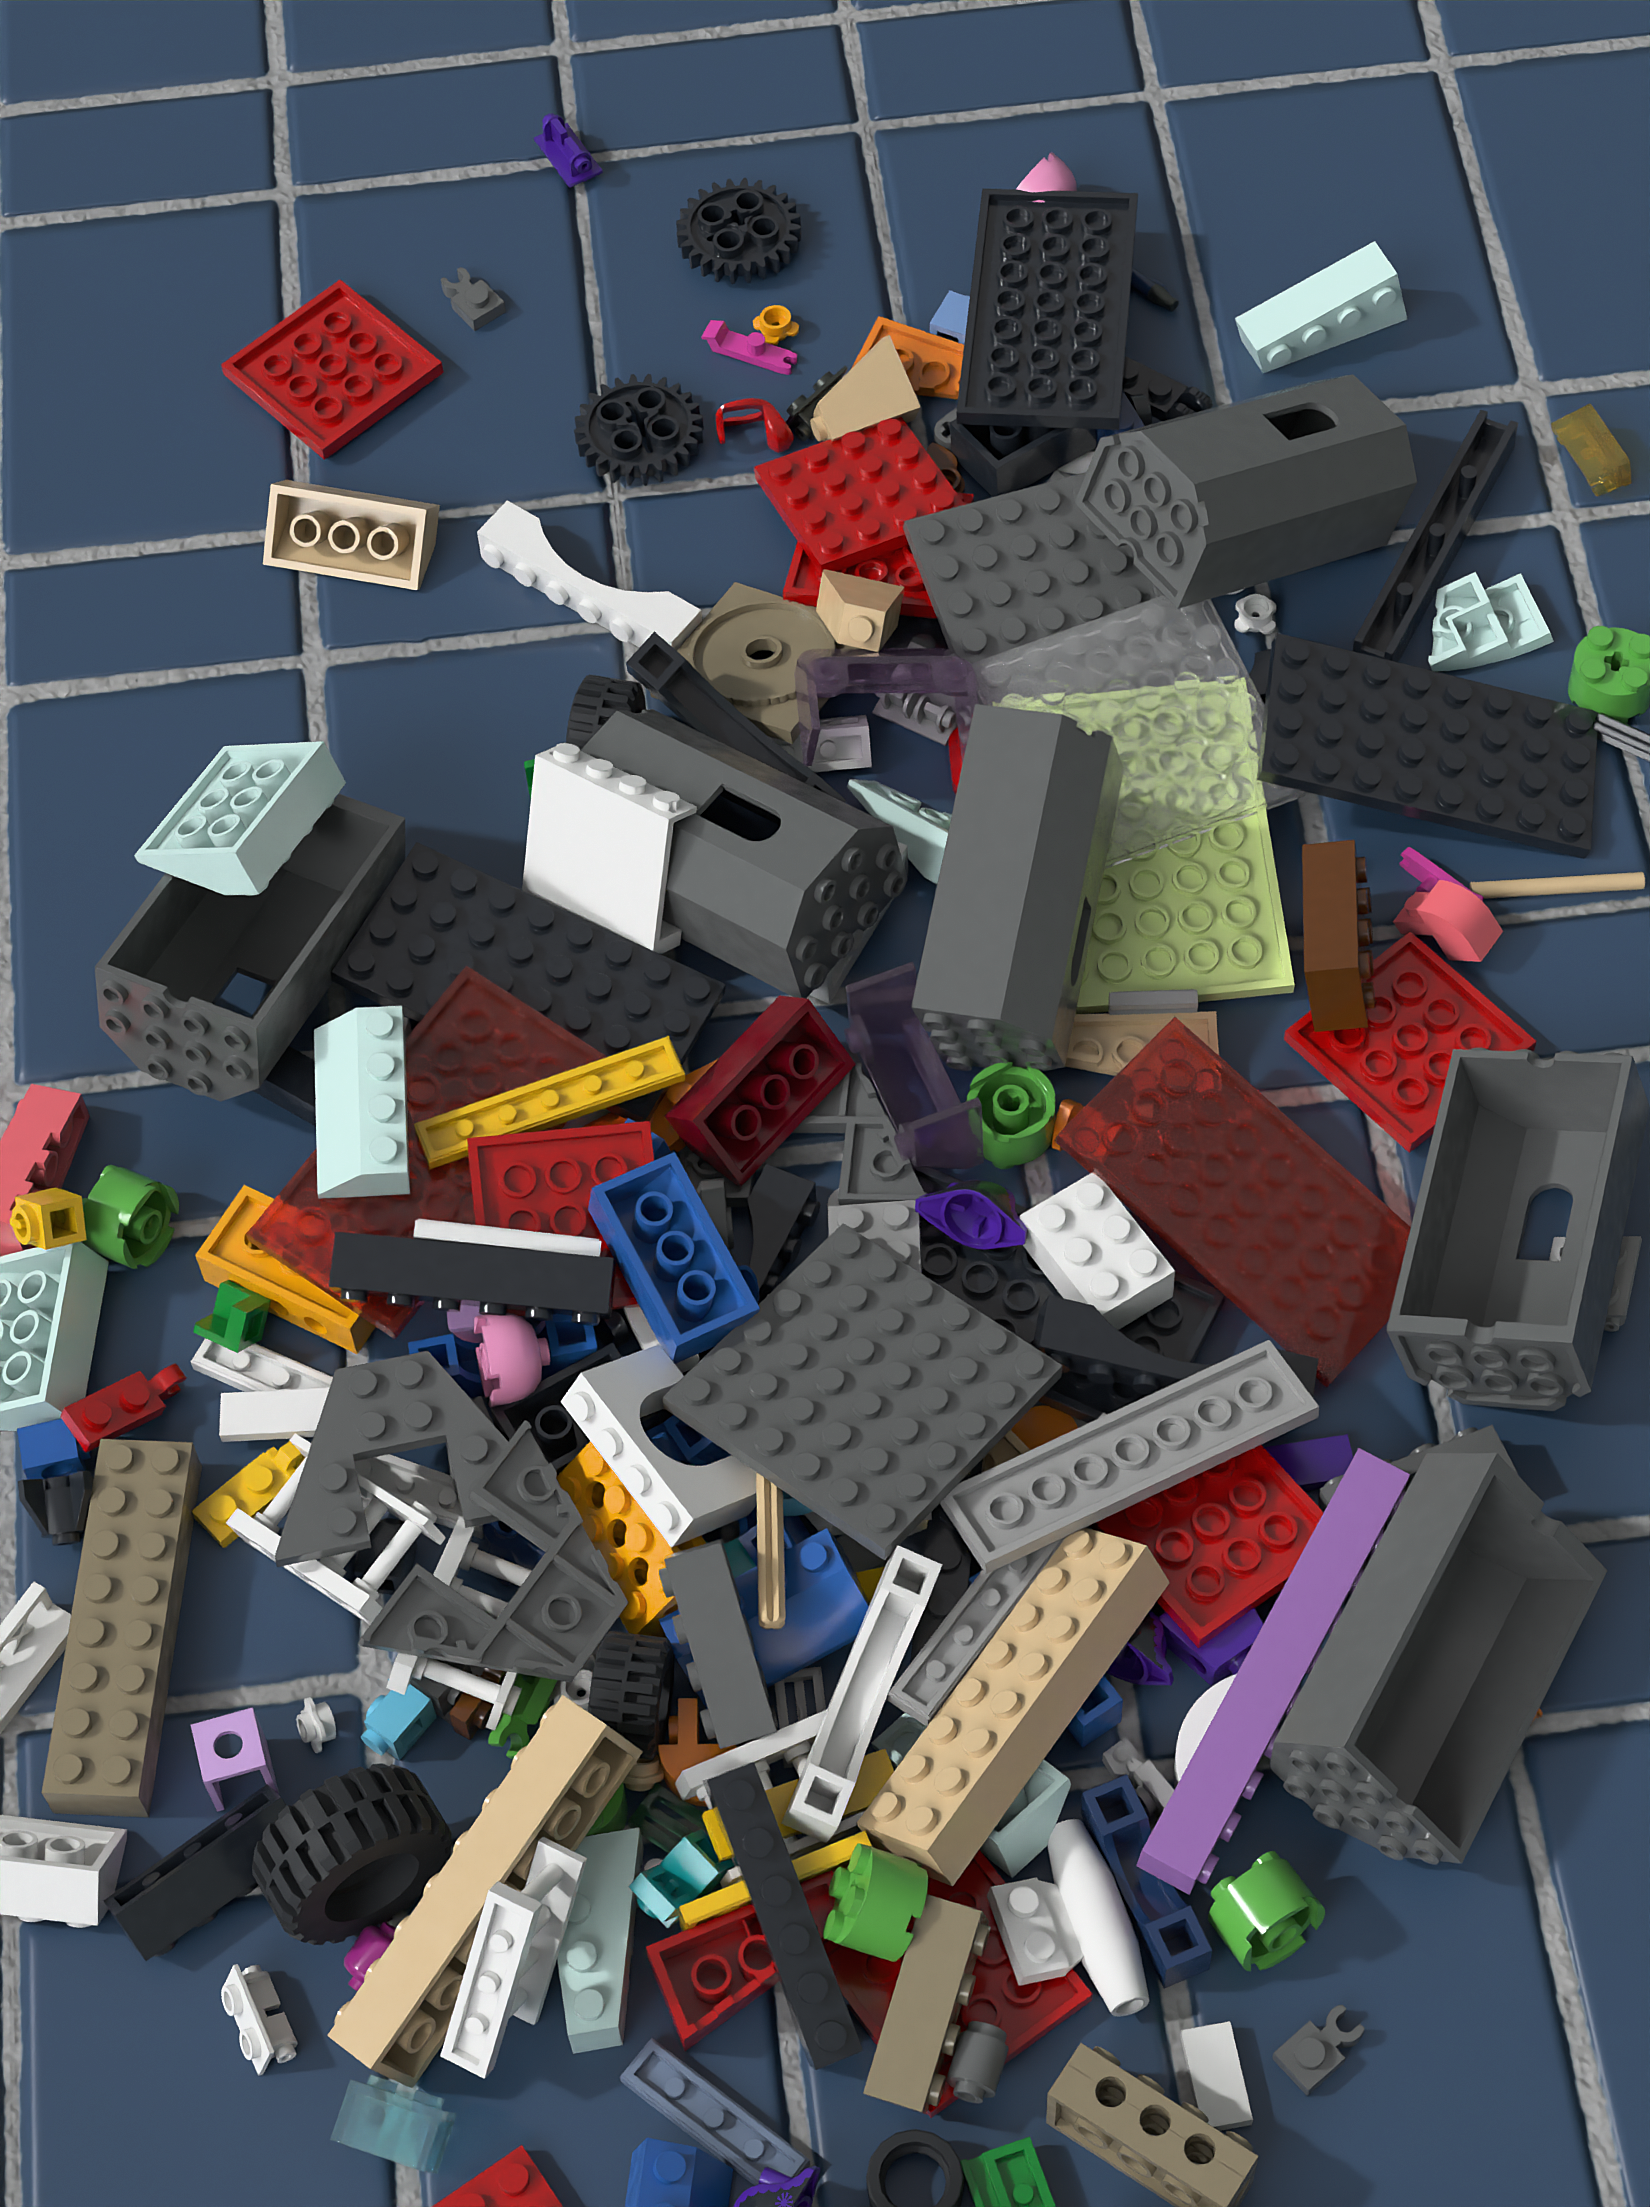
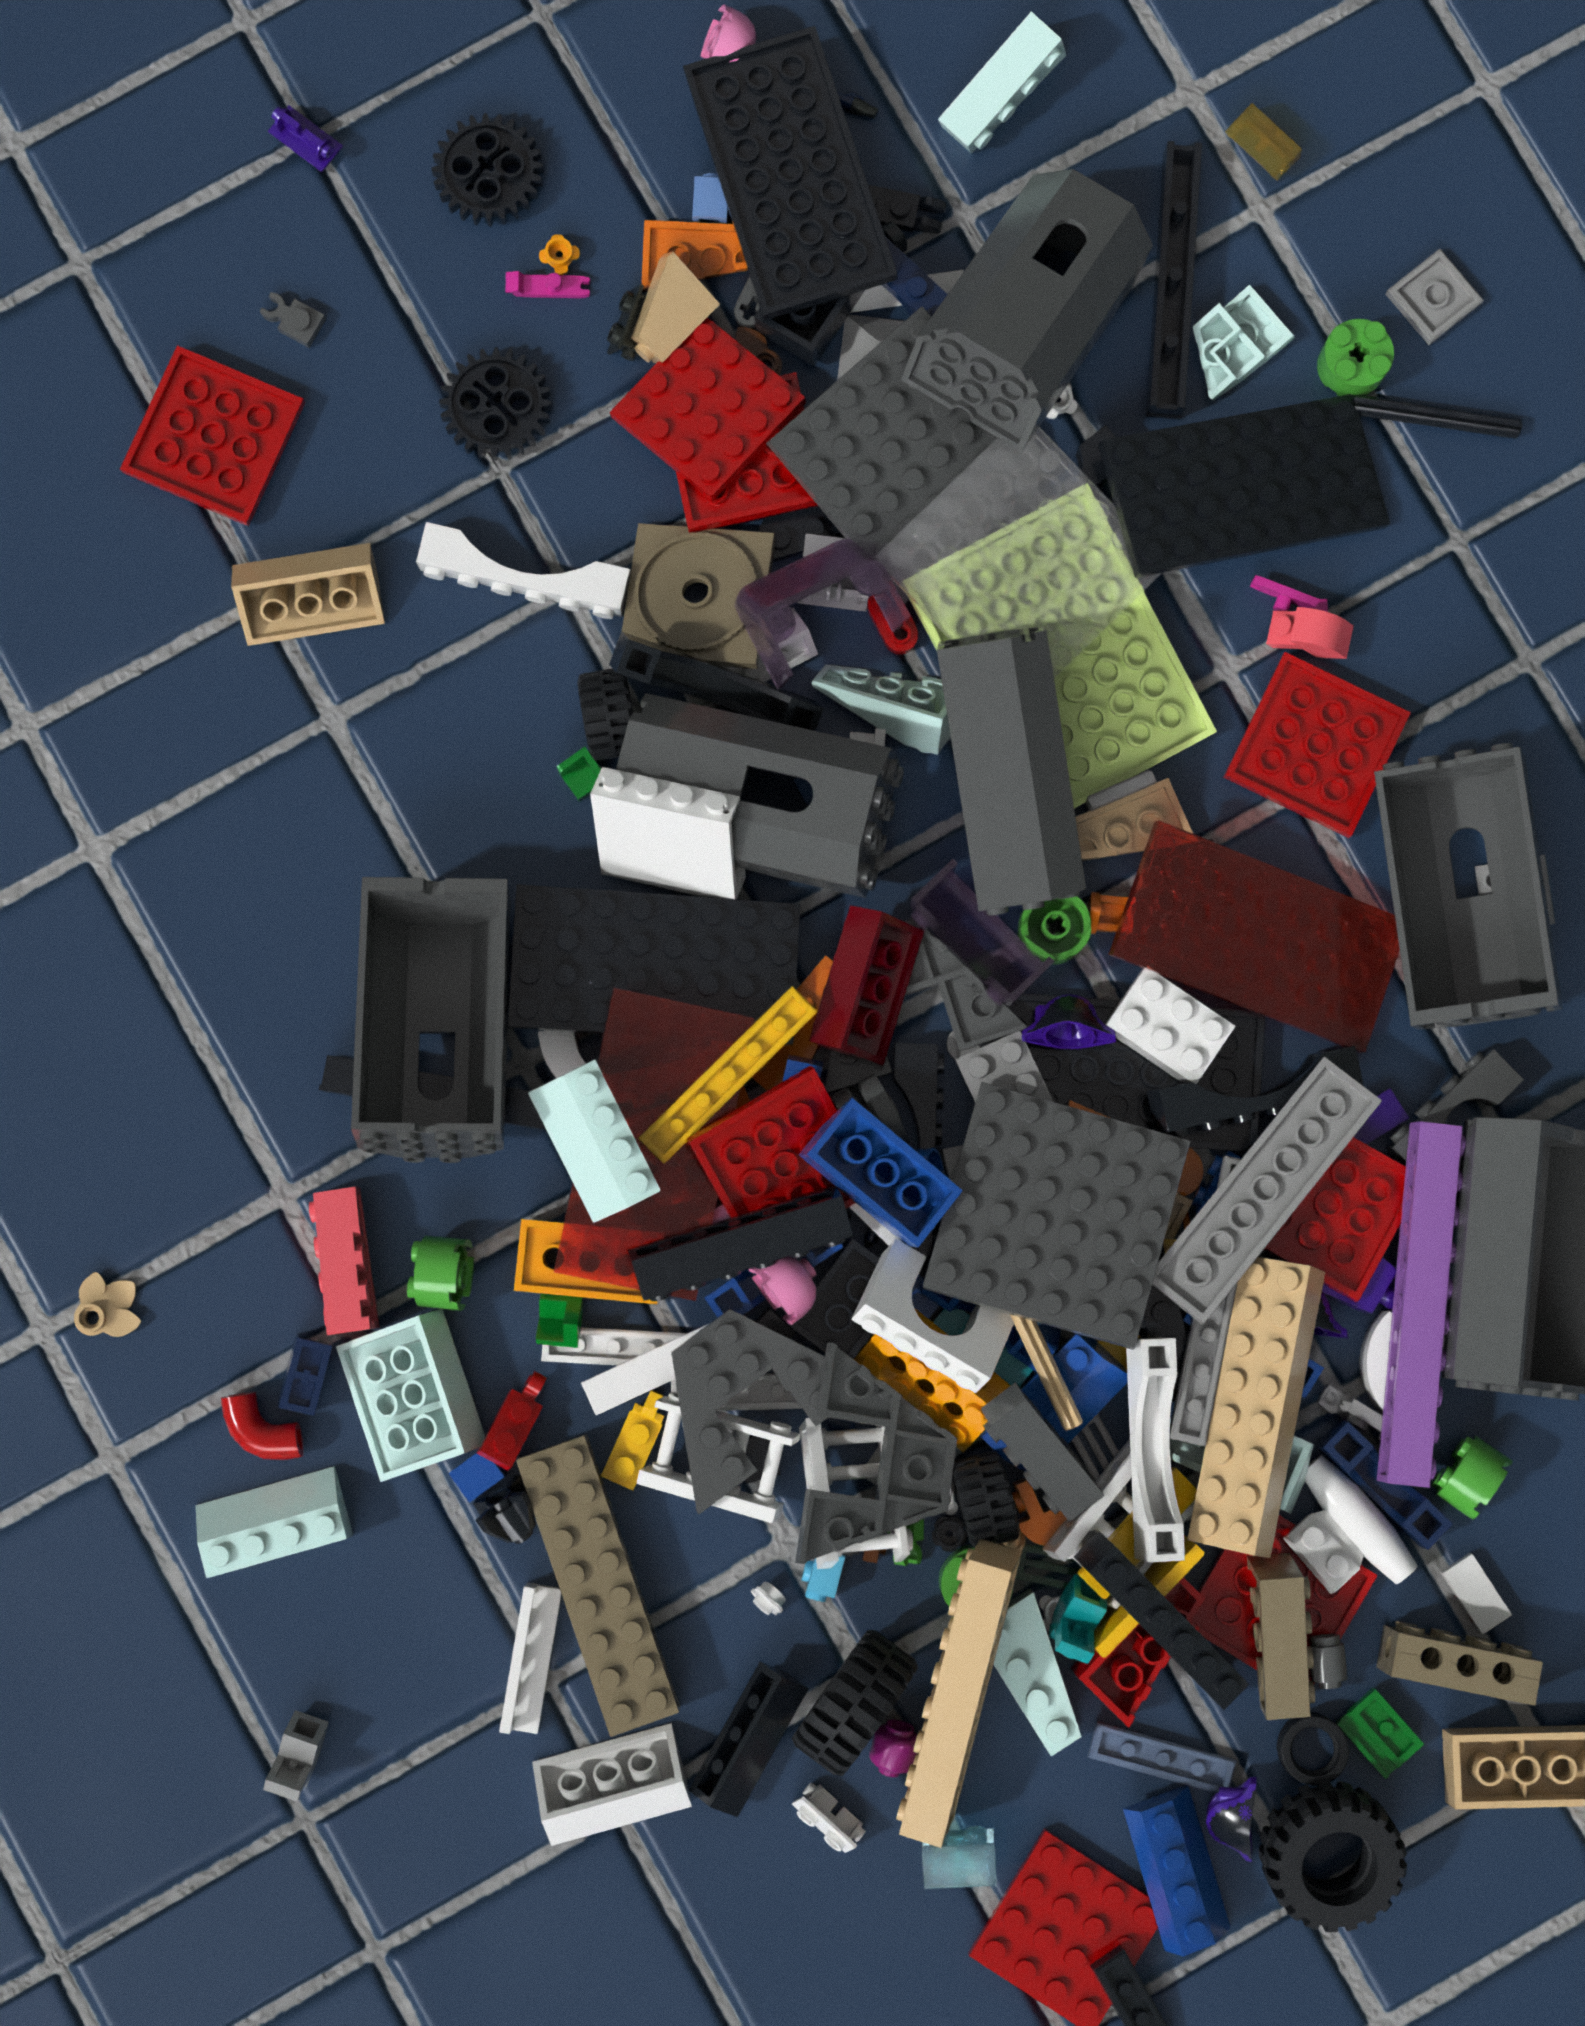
camera: 30 degrees left, 25 degrees up
(48, 1218) = (396, 1314): yellow brick -> none
(244, 816) = (390, 942): light aqua slope -> none
(252, 1756) = (734, 1637): lavender piece -> none
(504, 1237) = (753, 1208): white tile -> none
(513, 1957) = (1004, 1733): white fence -> none
(777, 431) = (609, 366): red piece -> none
(859, 609) = (762, 534): tan slope -> none
(876, 1902) = (1226, 1593): bright green brick -> none
(1314, 2054) = (1531, 1551): dark grey plate -> none
(1337, 935) = (1239, 685): reddish brown brick -> none
(1559, 885) = (1374, 563): tan bar -> none

